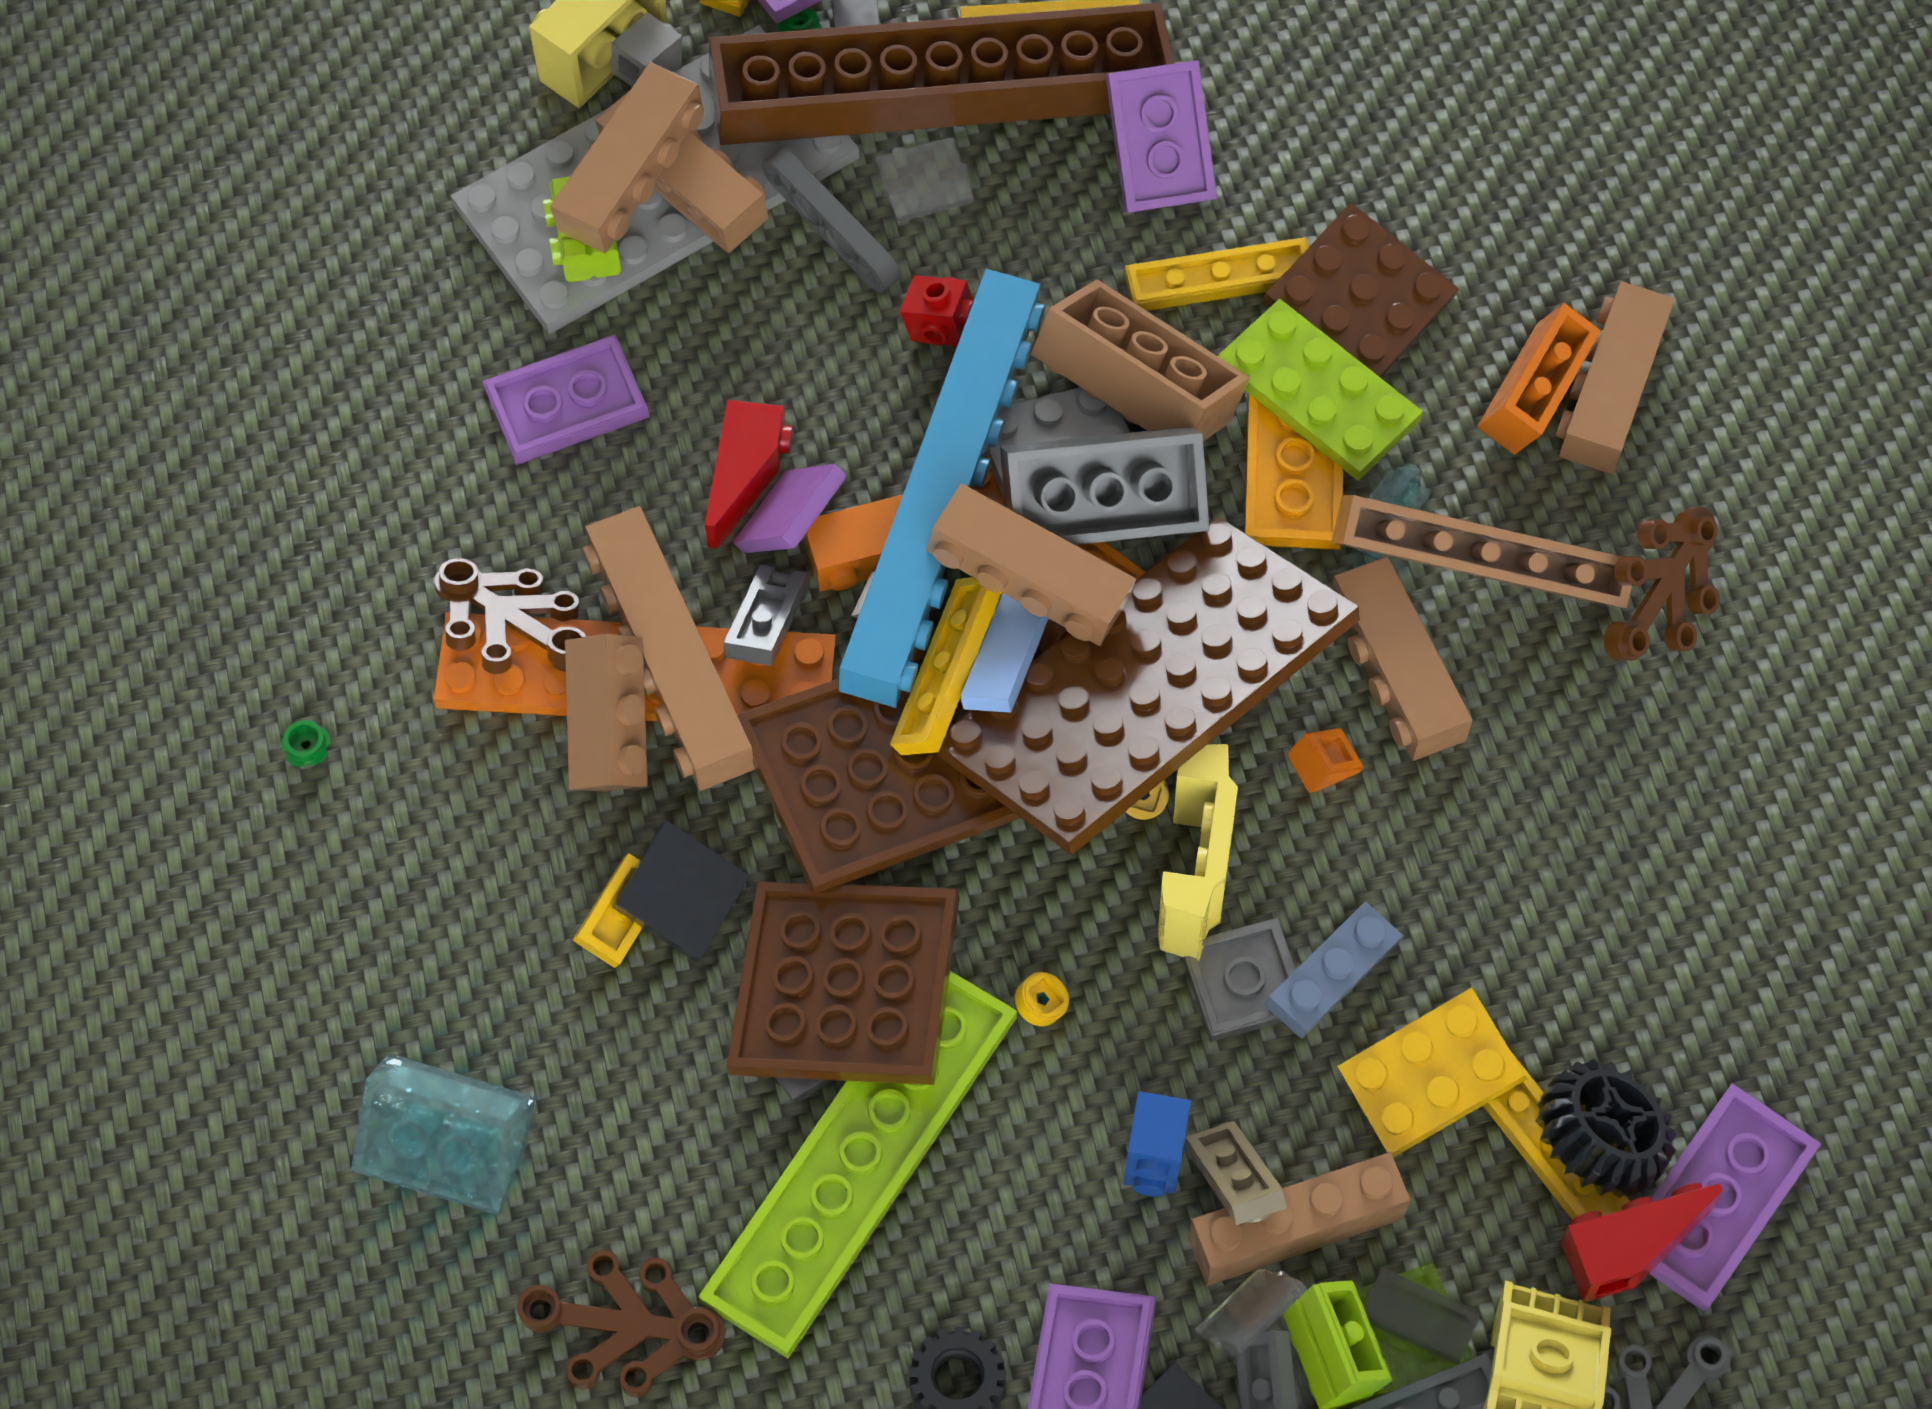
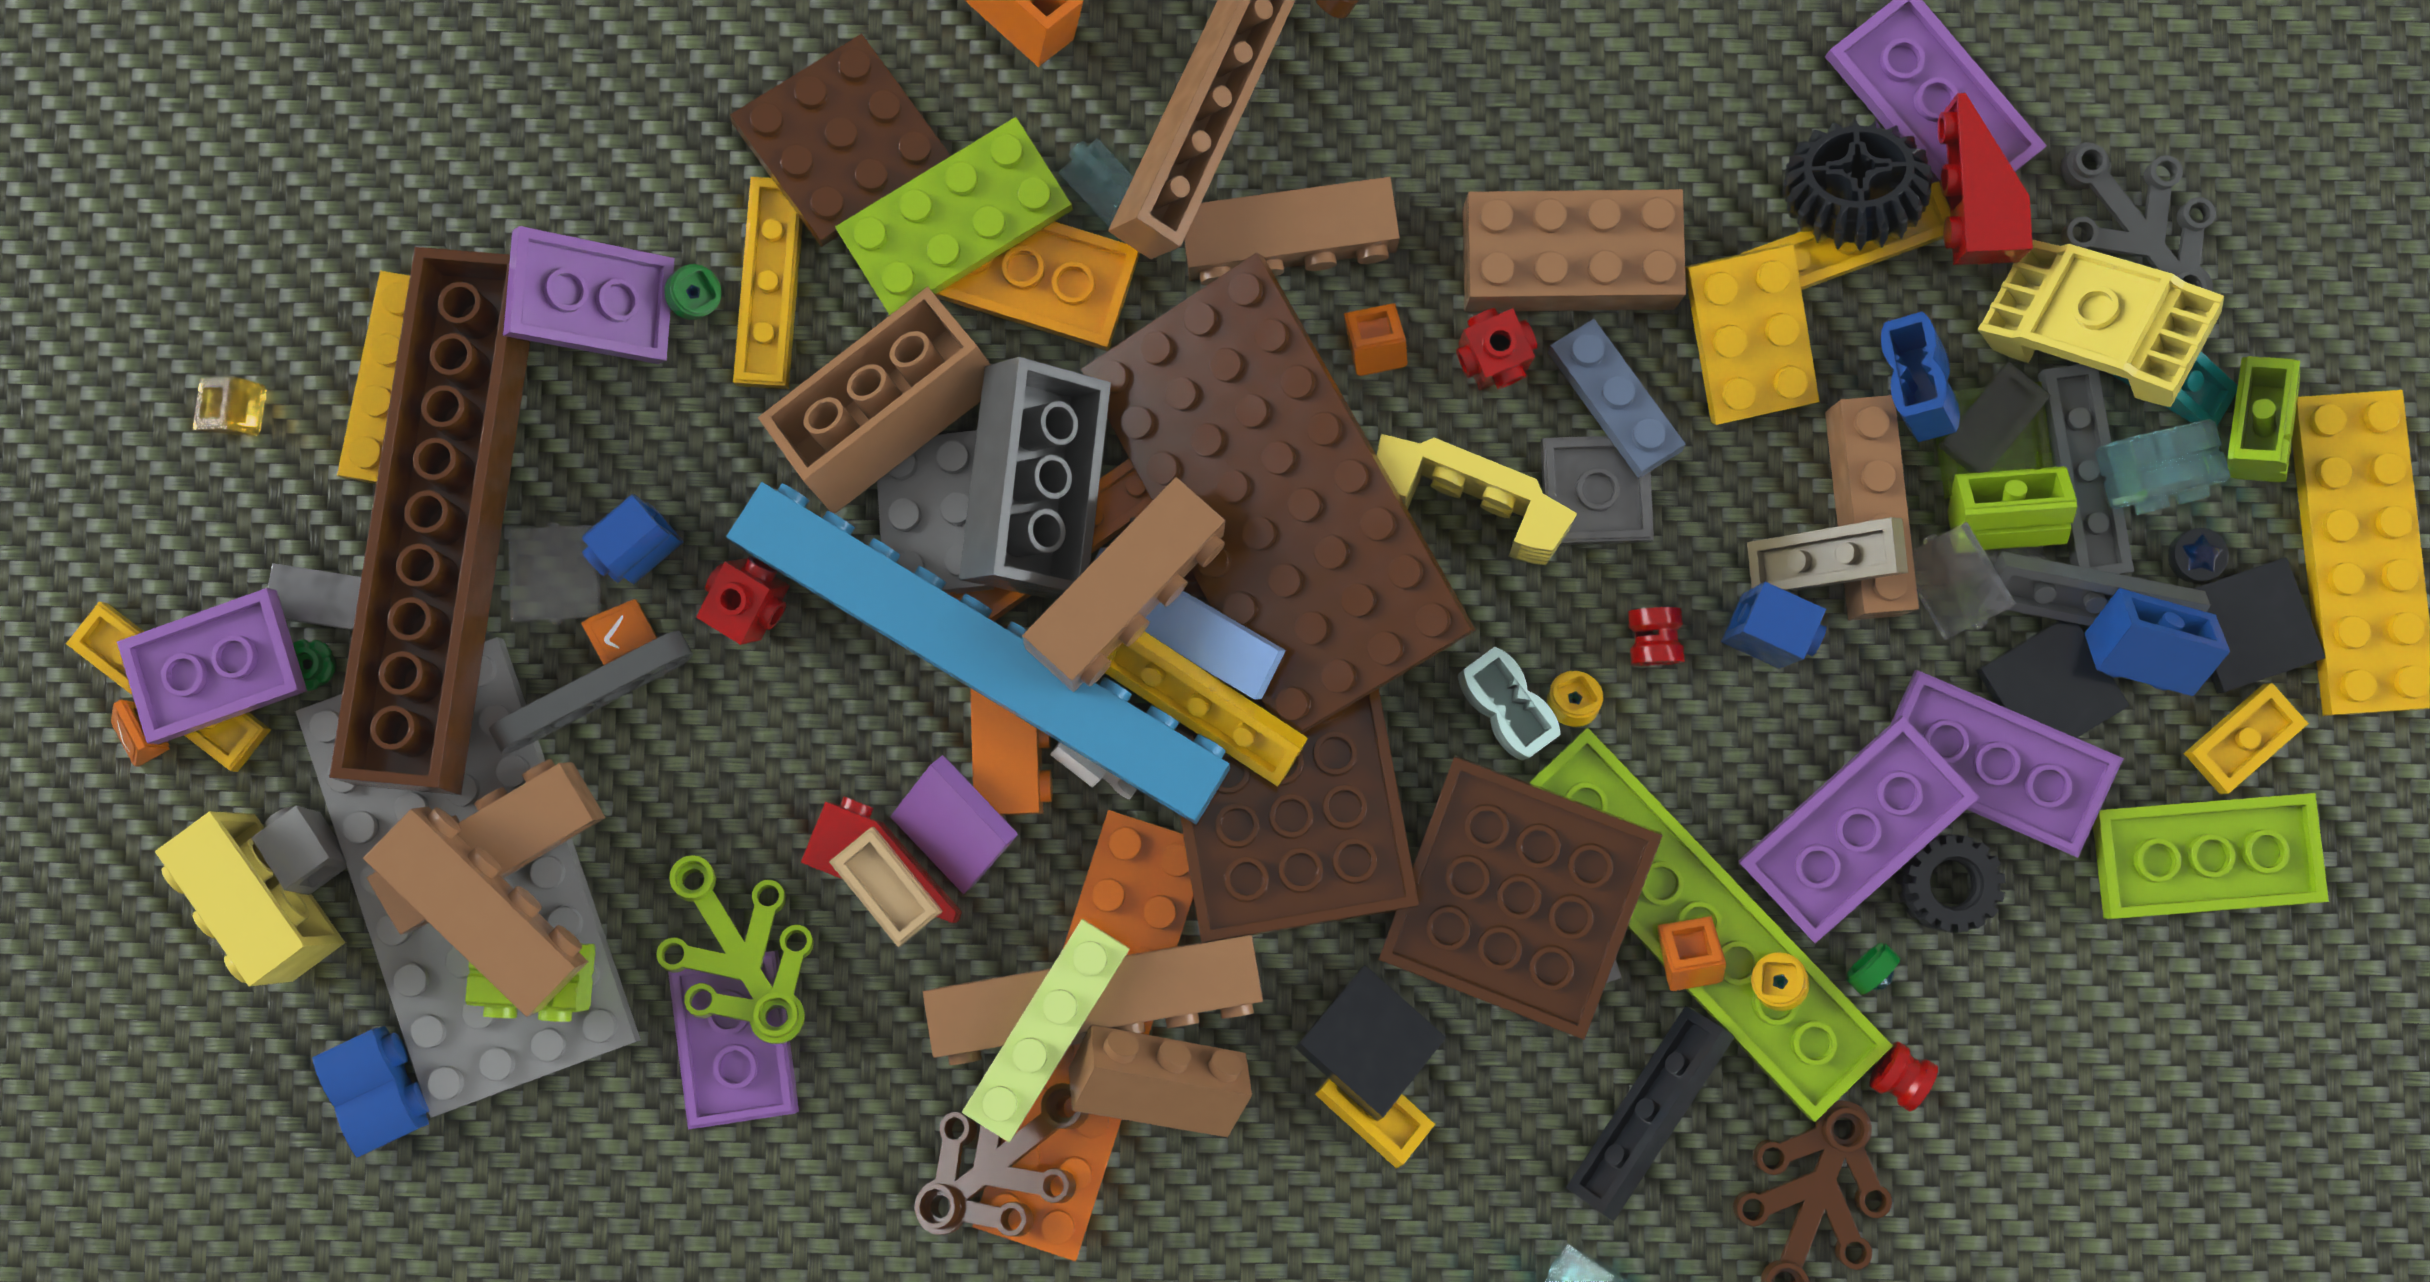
camera: 70 degrees left, 20 degrees up
(463, 147) = (371, 1090): none -> blue brick
(630, 602) = (1045, 1030): none -> yellowish green plate
(638, 382) = (741, 958): none -> lime plant
(674, 1148) = (1650, 1112): none -> black plate
(722, 465) = (886, 886): none -> tan tile
(760, 1372) = (1904, 1076): none -> red wheel
(766, 615) = (1076, 880): dark grey plate -> none
(822, 1225) = (1780, 981): none -> yellow tile
(828, 1144) = (1691, 953): none -> orange slope
(856, 1322) = (1873, 969): none -> green tile
(890, 230) = (619, 630): none -> orange slope
(965, 214) = (630, 541): none -> blue brick
(986, 1273) = (1858, 829): none -> medium lavender plate
(1025, 928) = (1517, 716): none -> light aqua brick
(1119, 1054) = (1651, 648): none -> red wheel
(1192, 217) = (692, 292): none -> green tile
(1345, 852) = (1491, 366): none -> red brick
(1437, 1226) = (1920, 377): none -> blue brick
(1459, 896) = (1573, 250): none -> medium nougat brick

